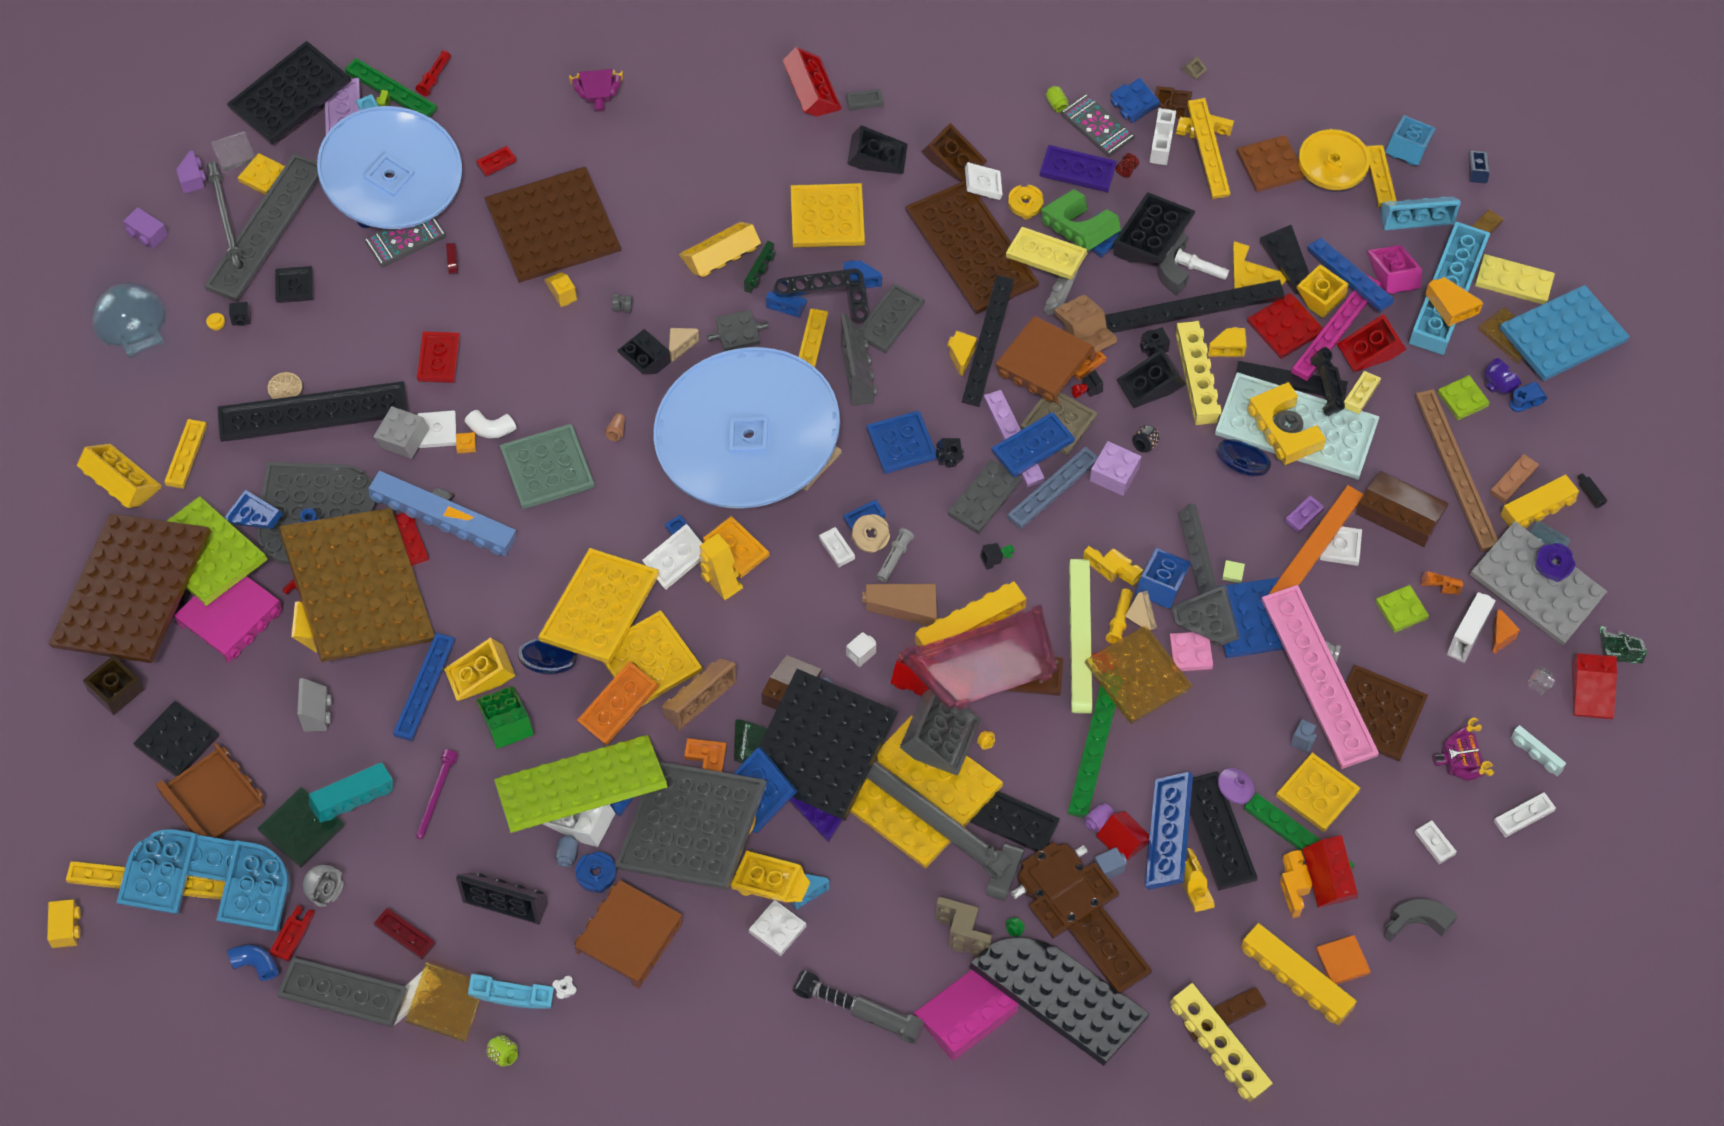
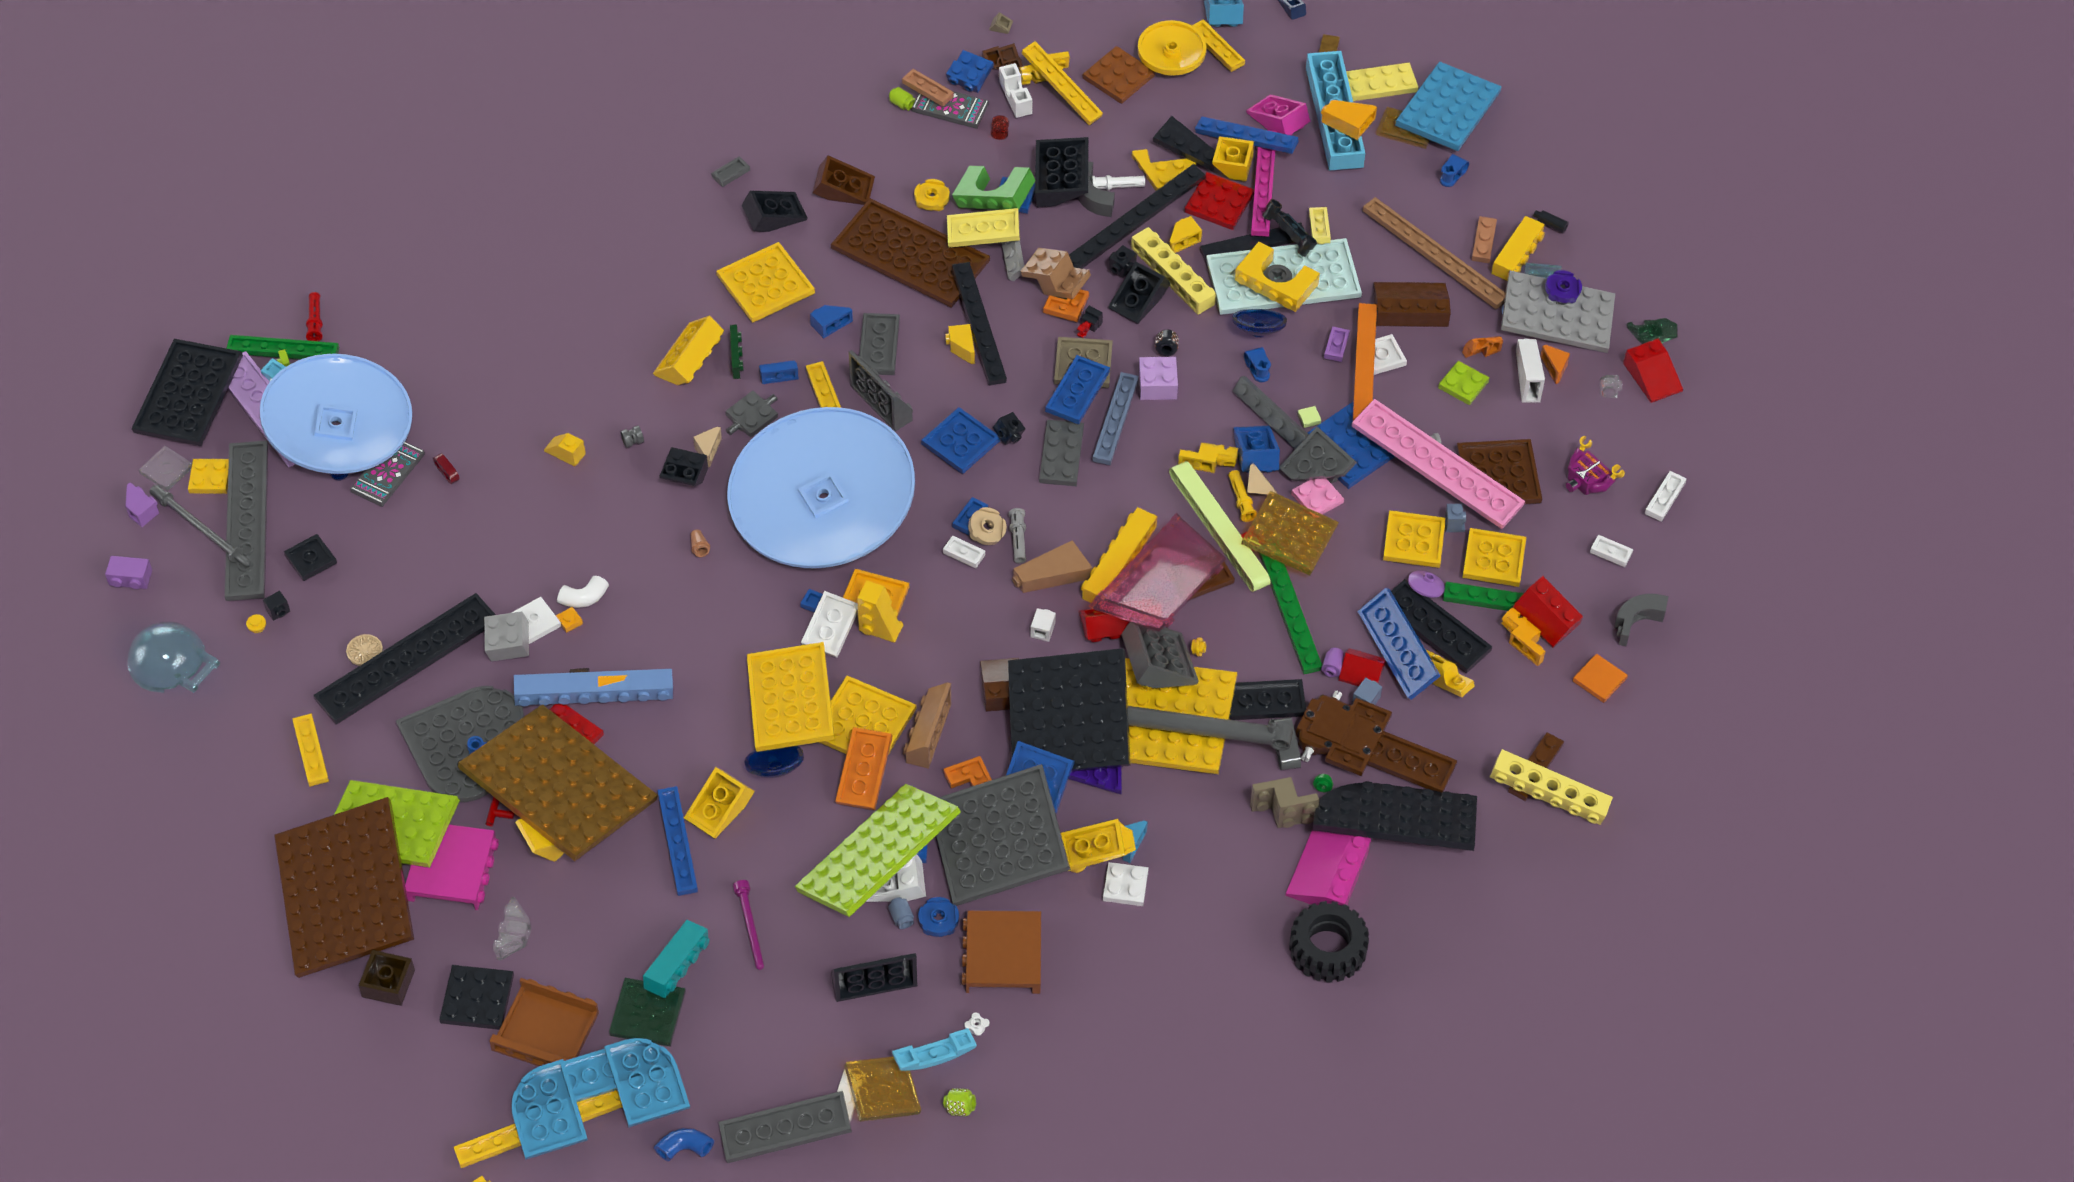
camera: 30 degrees left, 5 degrees down
(118, 475) = (257, 798): yellow slope -> none
(240, 696) = (512, 931): none -> clear slope
(253, 512) = (415, 767): blue wing -> none
(291, 934) = (703, 1105): red hinge -> none
(313, 706) = (589, 904): light grey slope -> none
(322, 884) = (703, 1048): light grey cylinder -> none
(404, 933) = (804, 1052): dark red plate -> none
(438, 357) = (493, 558): red plate -> none
(496, 161) = (428, 367): red plate -> none
(505, 717) = (769, 830): green slope -> none
(547, 466) = (659, 604): sand green plate -> none
(552, 224) = (518, 399): reddish brown plate -> none
(597, 86) = (479, 262): magenta torso -> none
(746, 739) = (996, 746): clear green slope -> none
(811, 83) = (674, 177): red slope -> none
(828, 285) = (811, 336): black beam -> none
(905, 1026) = (1287, 906): piece -> none
(924, 1054) = (1333, 919): none -> black tyre
(983, 181) = (885, 193): white plate -> none
(992, 554) = (1103, 495): black piece -> none
(1007, 427) = (1045, 388): lavender plate -> none
(1044, 358) = (1040, 315): dark orange panel -> none
(1078, 168) = (959, 148): dark purple plate -> none
(1085, 99) = (928, 87): none -> nougat plate
(1218, 499) = (1258, 364): none -> blue piece
(1253, 737) = (1414, 539): none -> yellow plate
(1298, 974) = (1574, 705): yellow brick -> none
(1372, 344) = (1302, 183): red slope -> none
(1419, 213) = (1270, 61): medium azure slope -> none
(1463, 397) = (1401, 194): lime plate -> none
(1500, 377) = (1423, 163): dark purple cylinder -> none
(1538, 751) = (1643, 441): light aqua plate -> none

